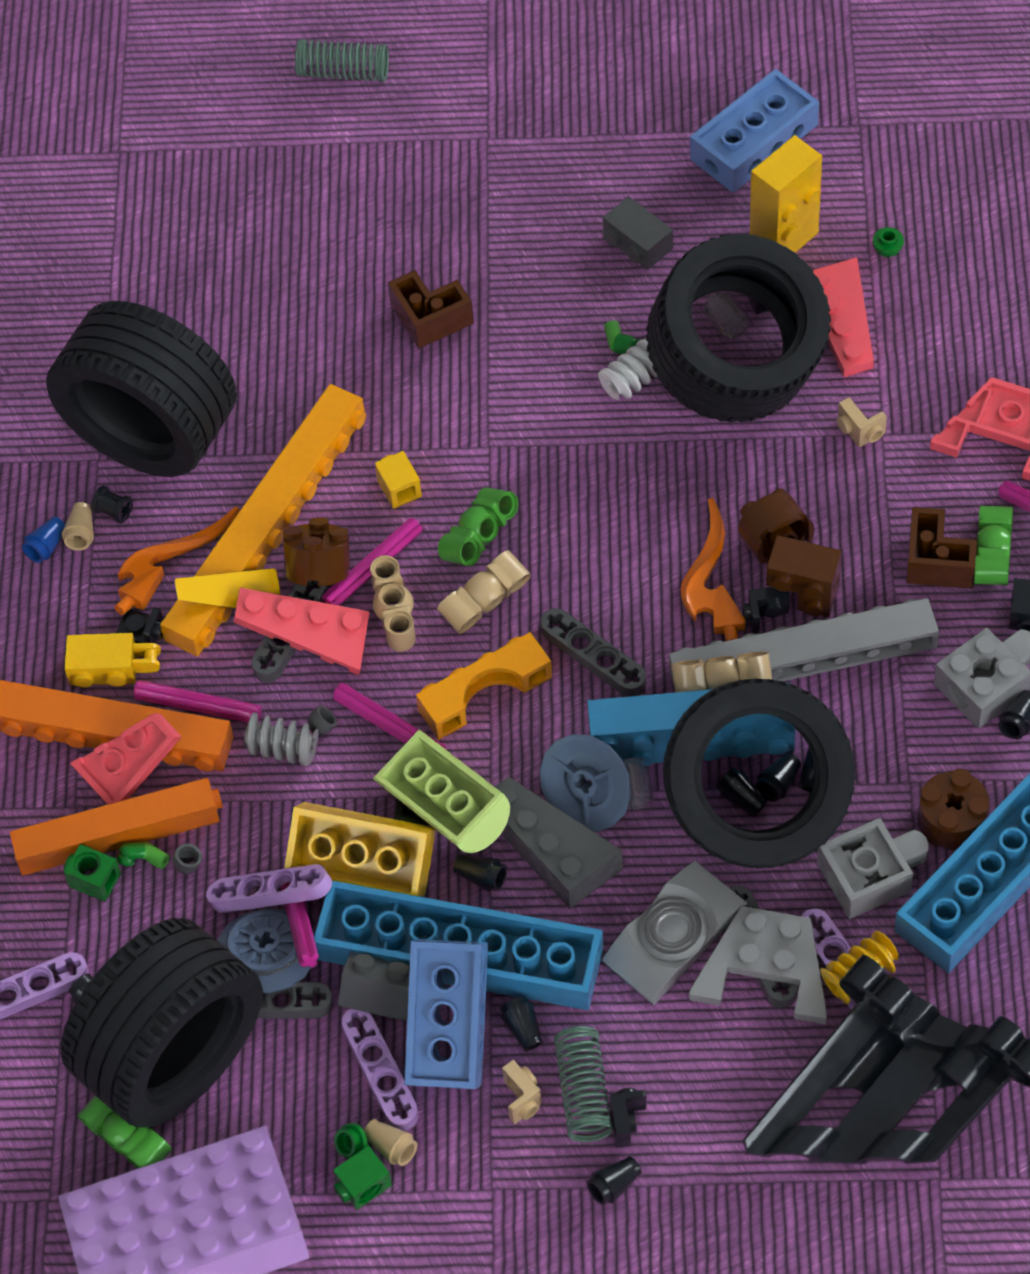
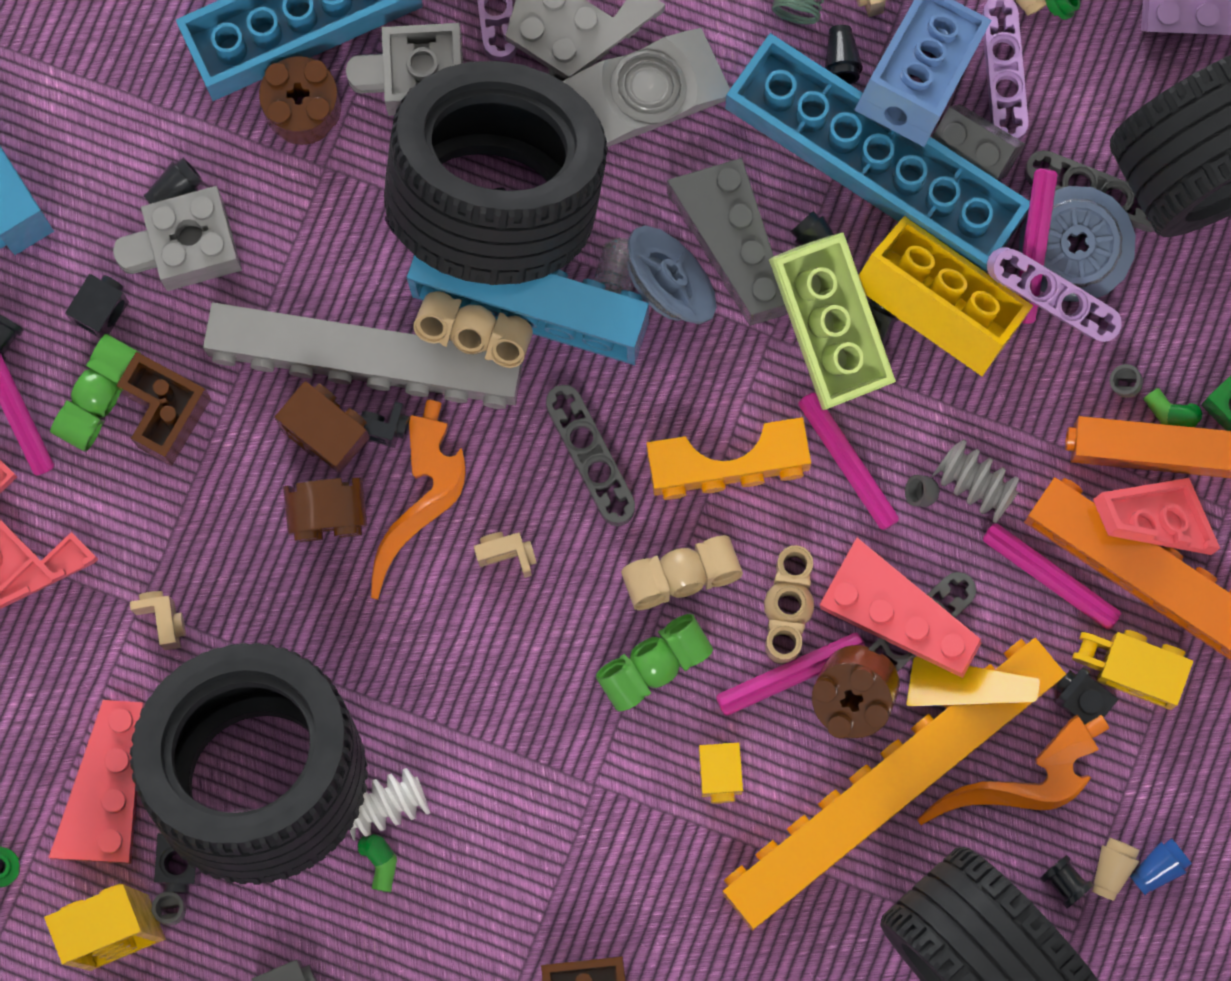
camera: 160 degrees left, 20 degrees up
(627, 561) = (499, 548): none -> tan bracket

